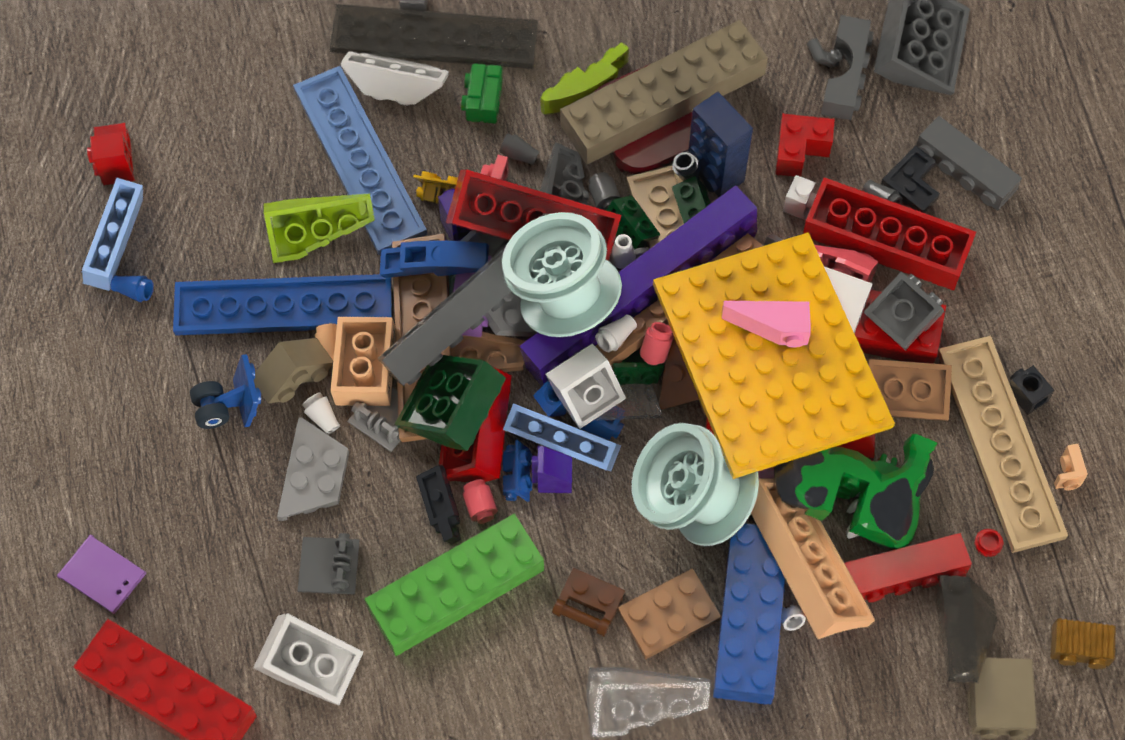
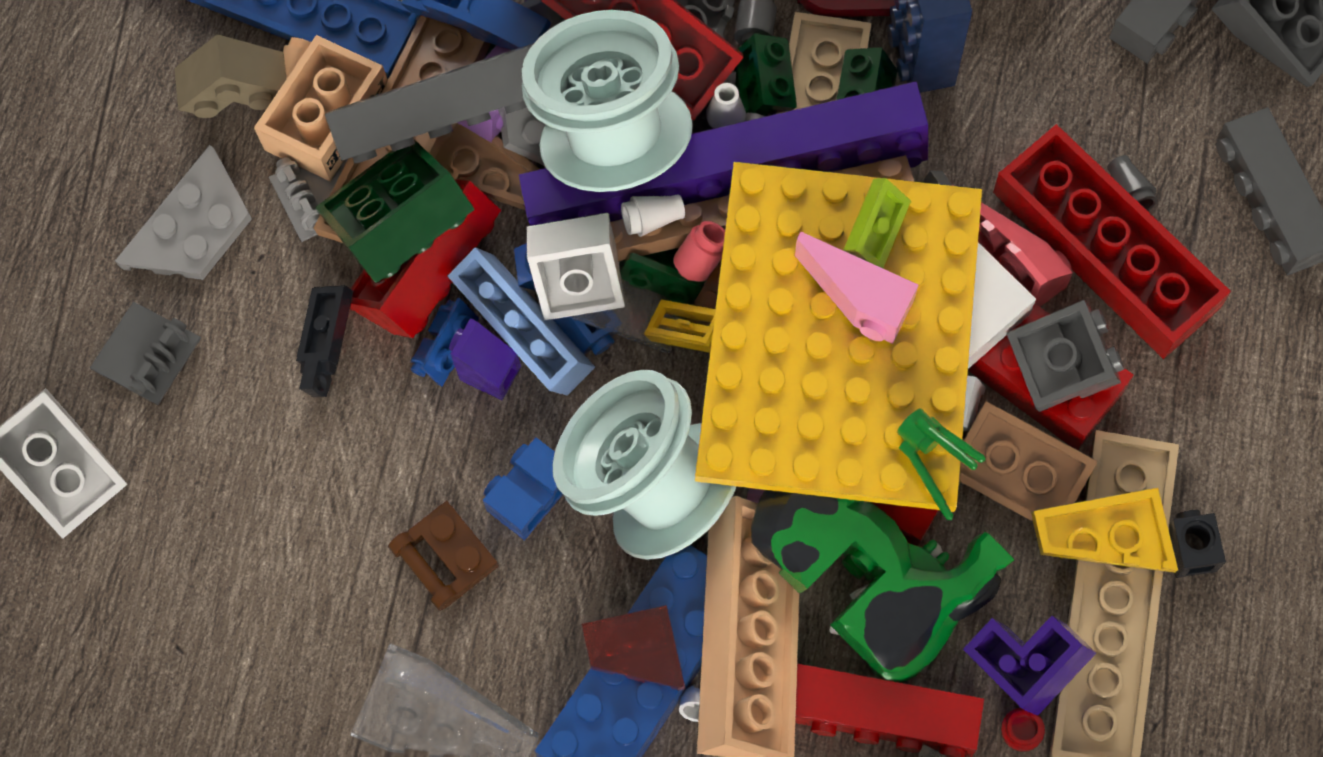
camera: 30 degrees right, 5 degrees up
(215, 404) = (117, 78): plate -> none
(321, 413) = (239, 150): white cone -> none
(455, 584) = (282, 451): bright green brick -> none
(479, 501) = (373, 357): coral brick -> none
(621, 536) = (526, 491): none -> blue brick
(668, 398) = (679, 339): none -> yellow tile
(669, 613) = (535, 619): medium nougat plate -> none
(685, 166) = (876, 30): black cone -> none
(744, 596) = (635, 646): none -> clear red wing
(762, 276) = (878, 222): none -> lime plate
(800, 197) = (1013, 136): white brick -> none
(802, 137) = (1058, 56): red brick -> none
(856, 387) = (924, 434): none -> green plant
(907, 180) = (1178, 180): black plate -> none
(979, 402) = (1109, 530): none -> yellow wing
(980, 503) = (1030, 670): none -> dark purple brick
(1073, 464) = (1200, 676): light nougat bracket -> none

